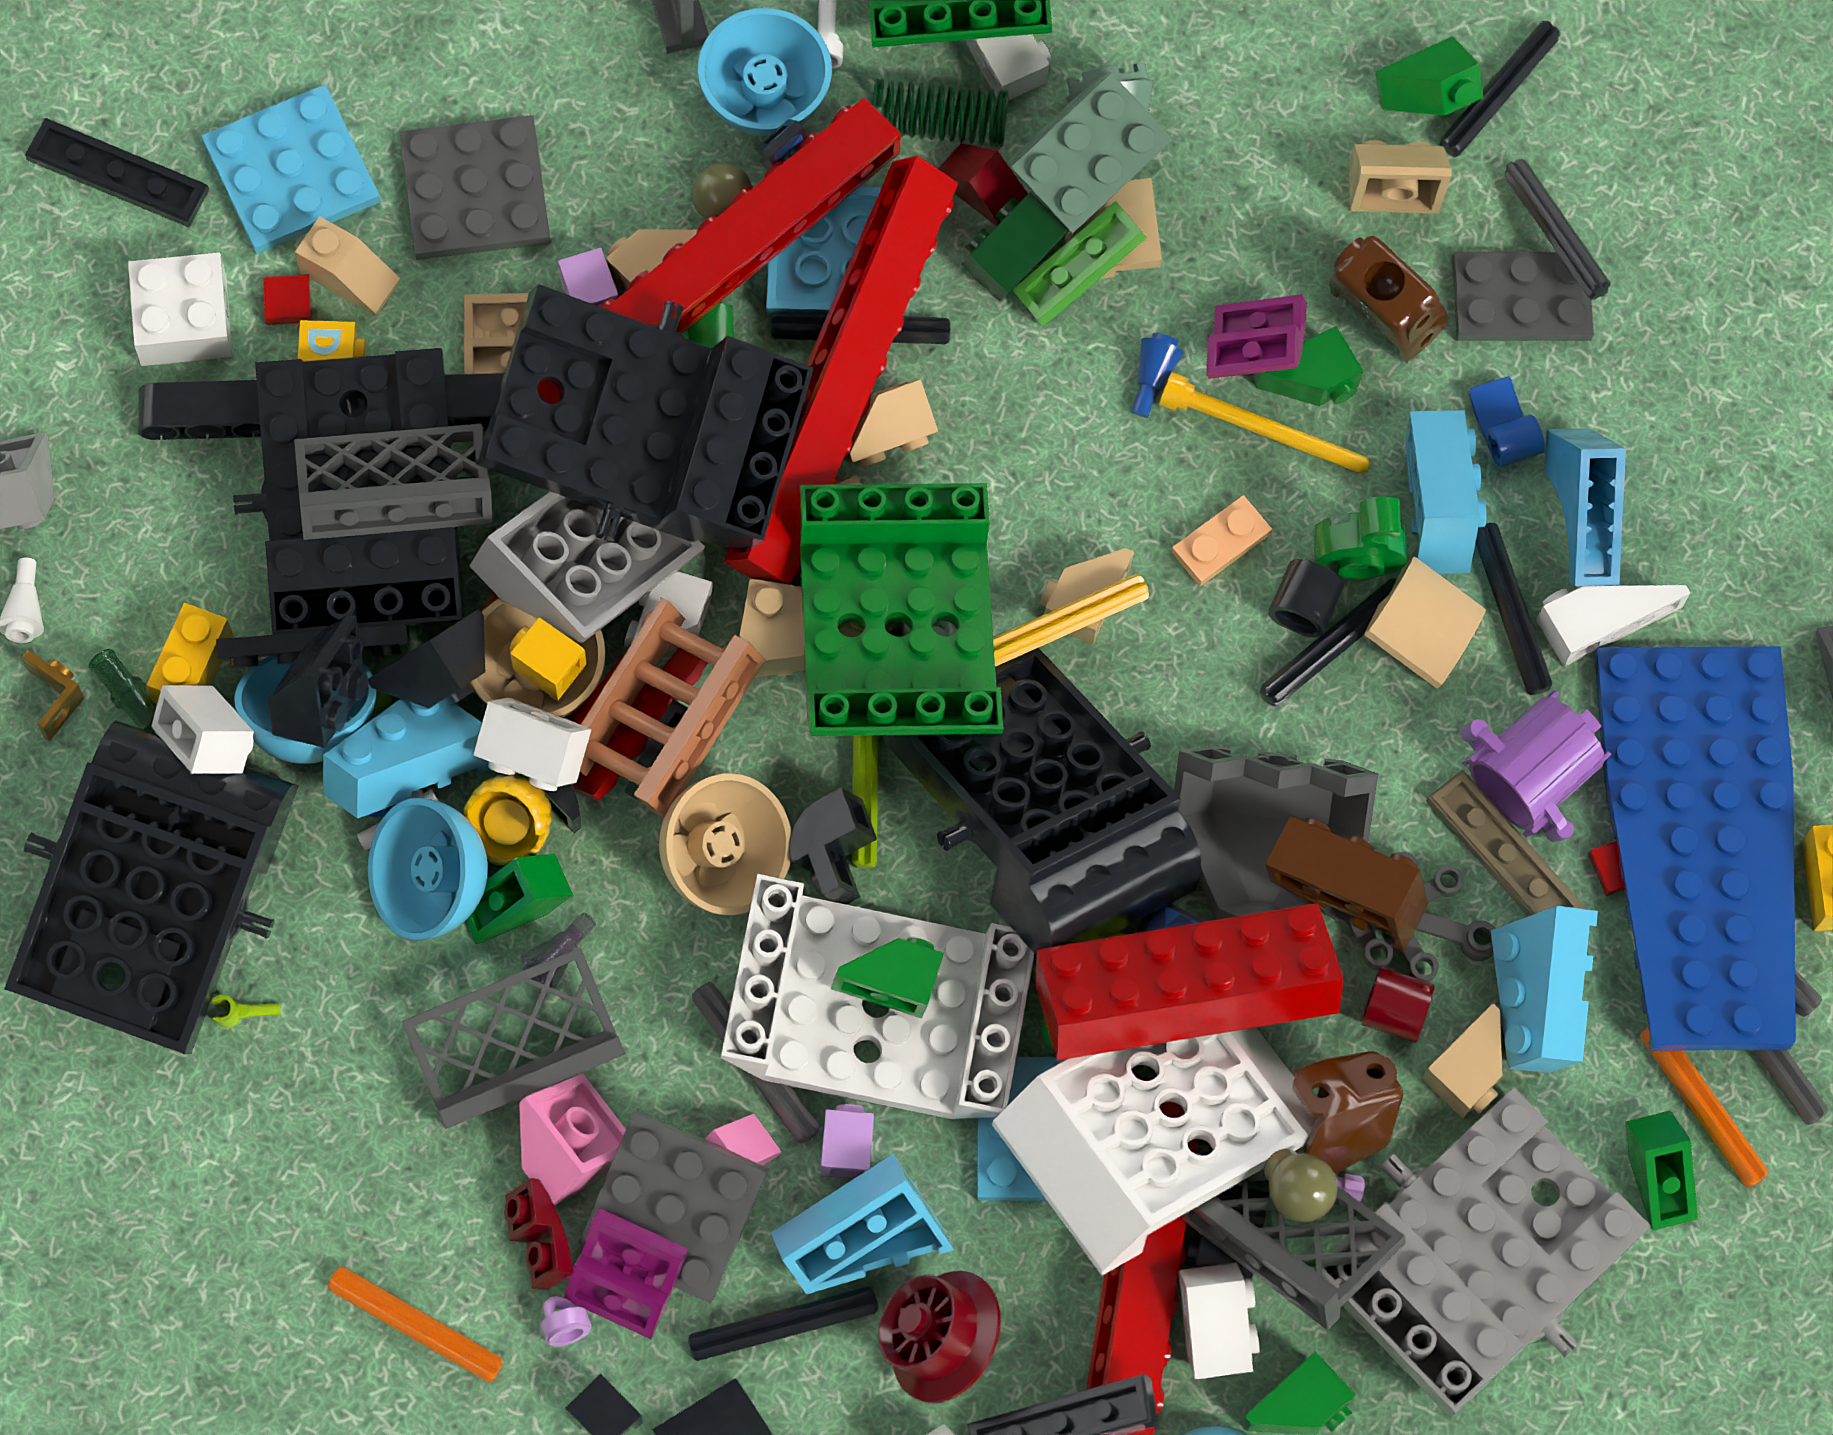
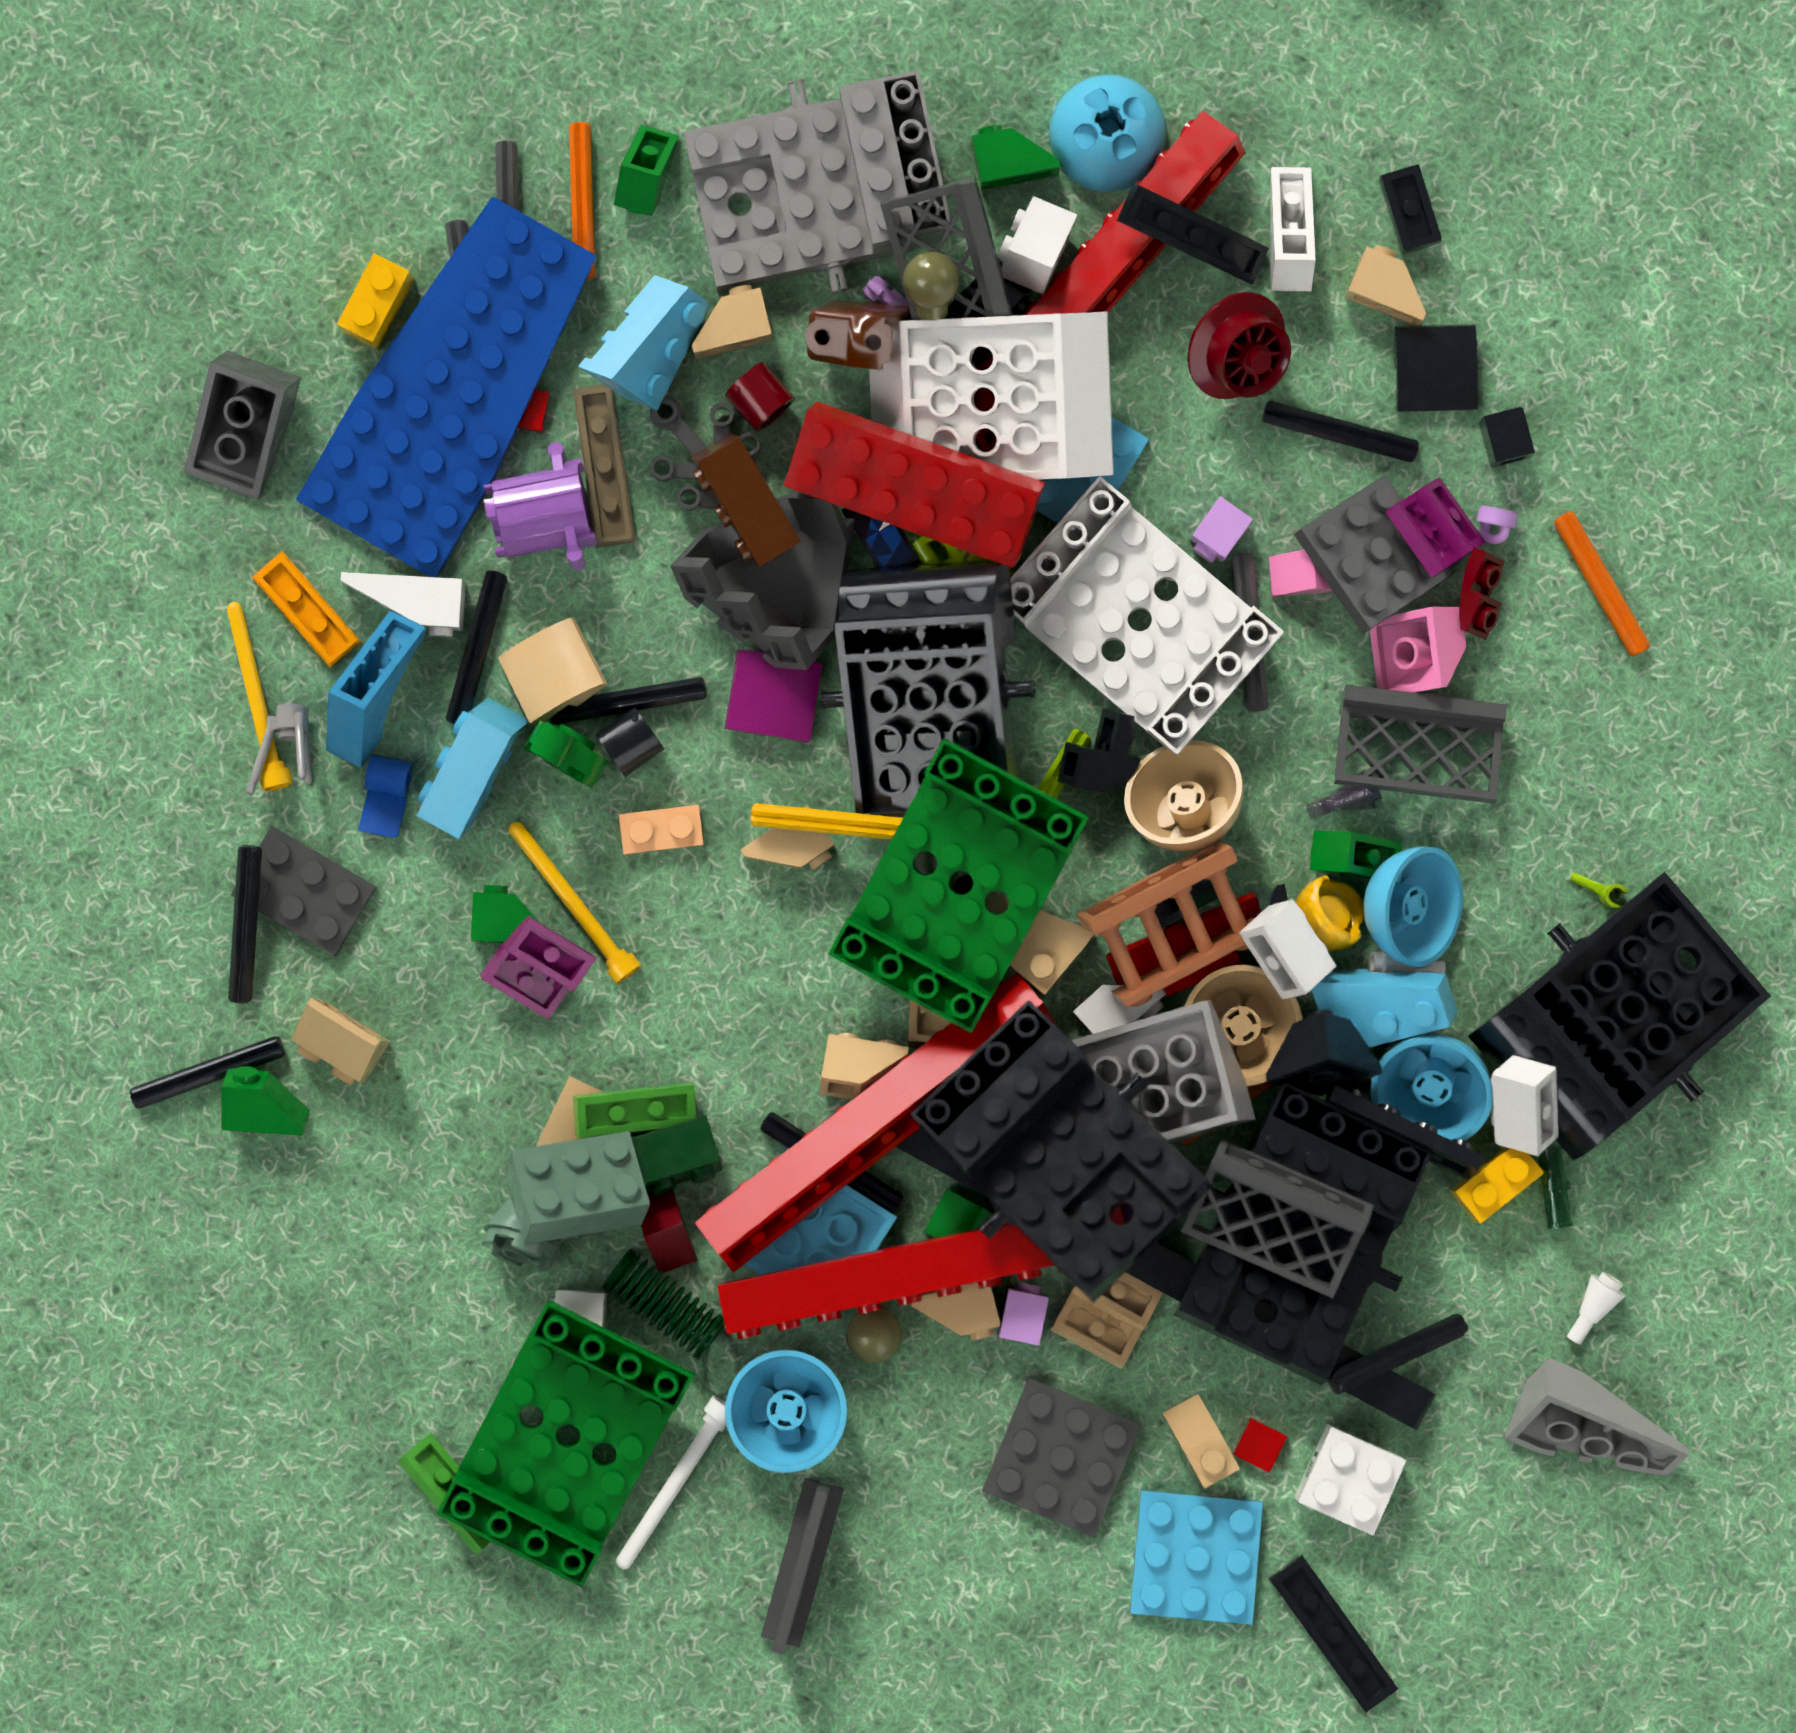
camera: 140 degrees left, 15 degrees up
(60, 679) = (1600, 1225): pearl gold bracket -> none
(198, 441) = (1397, 1353): none -> black axle
(320, 686) = (1424, 1079): black slope -> none
(329, 340) = (1252, 1378): yellow brick -> none
(547, 657) = (1239, 1011): yellow brick -> none
(781, 143) = (811, 1338): black slope -> none
(860, 1228) = (1251, 459): medium azure wedge -> none
(893, 975) = (1118, 623): green slope -> none
(1157, 361) = (622, 998): blue cone -> none
(1193, 715) = (771, 698): none -> magenta slope
(1389, 295) = (415, 941): reddish brown piece -> none
(1625, 384) = (274, 772): none -> yellow piece
(1635, 433) = (292, 726): none -> light grey plant
(1698, 553) = (306, 609): none -> light orange tile

